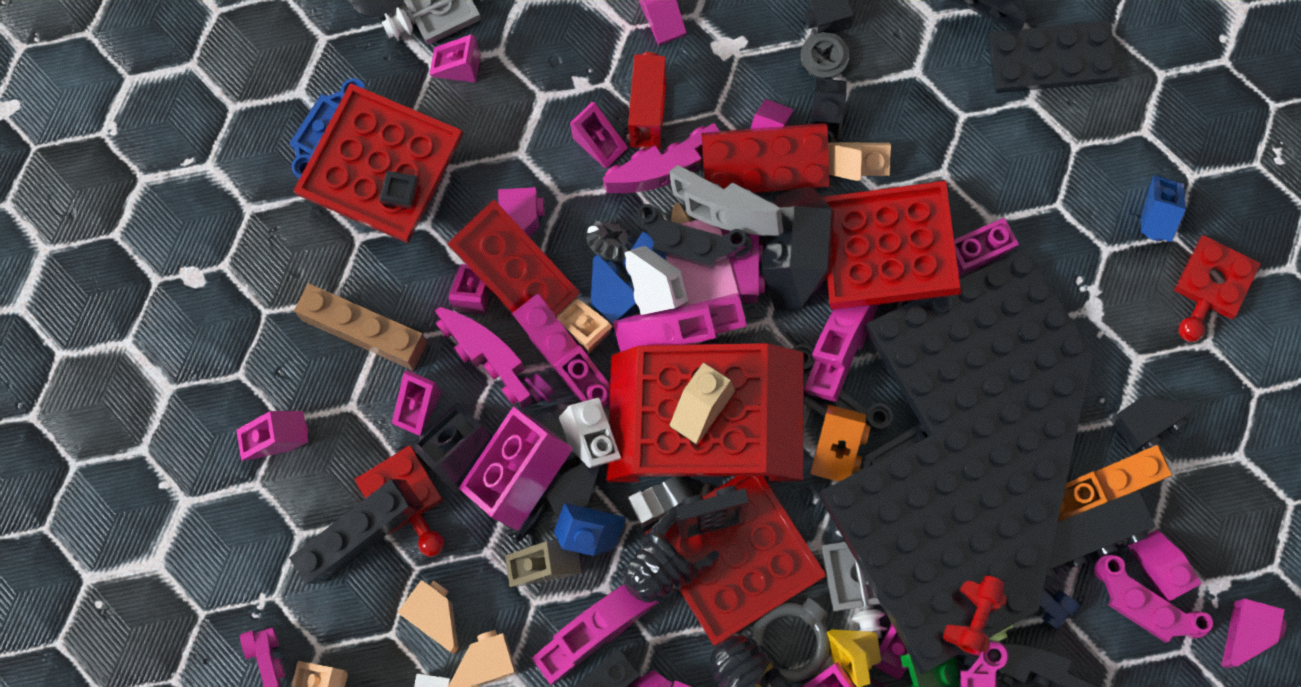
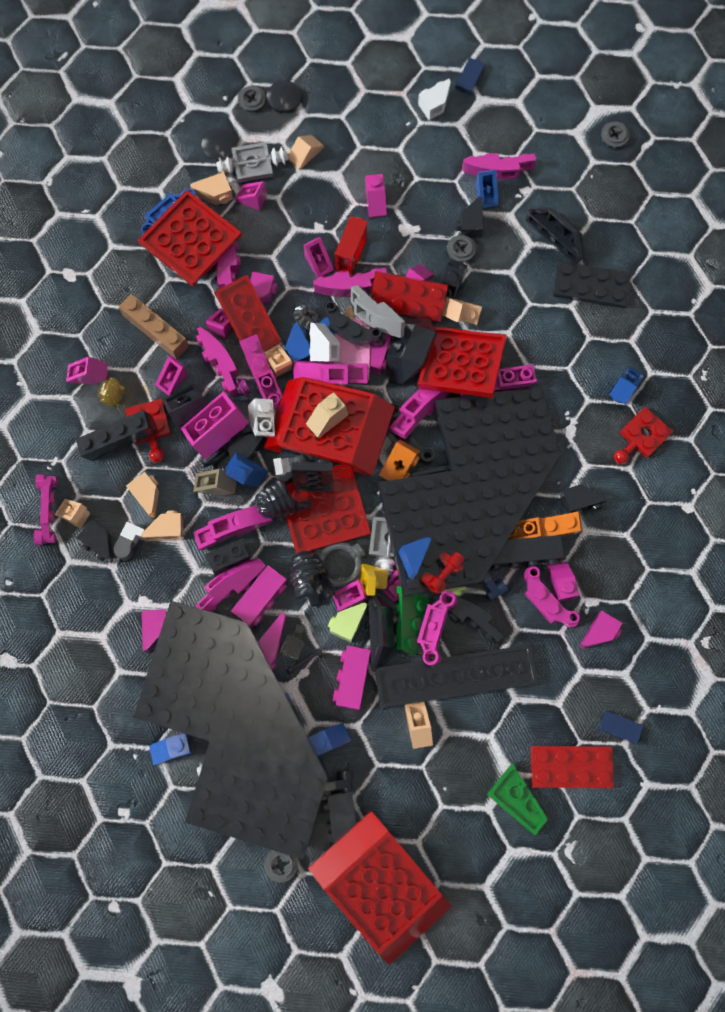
camera: 10 degrees right, 0 degrees up
(322, 458) = (110, 392): none -> clear yellow head
(391, 68) = (213, 189): none -> light nougat slope
(399, 190) = (196, 255): black tile -> none
(454, 194) = (228, 267): none -> dark pink slope
(922, 604) = (413, 554): none -> blue slope

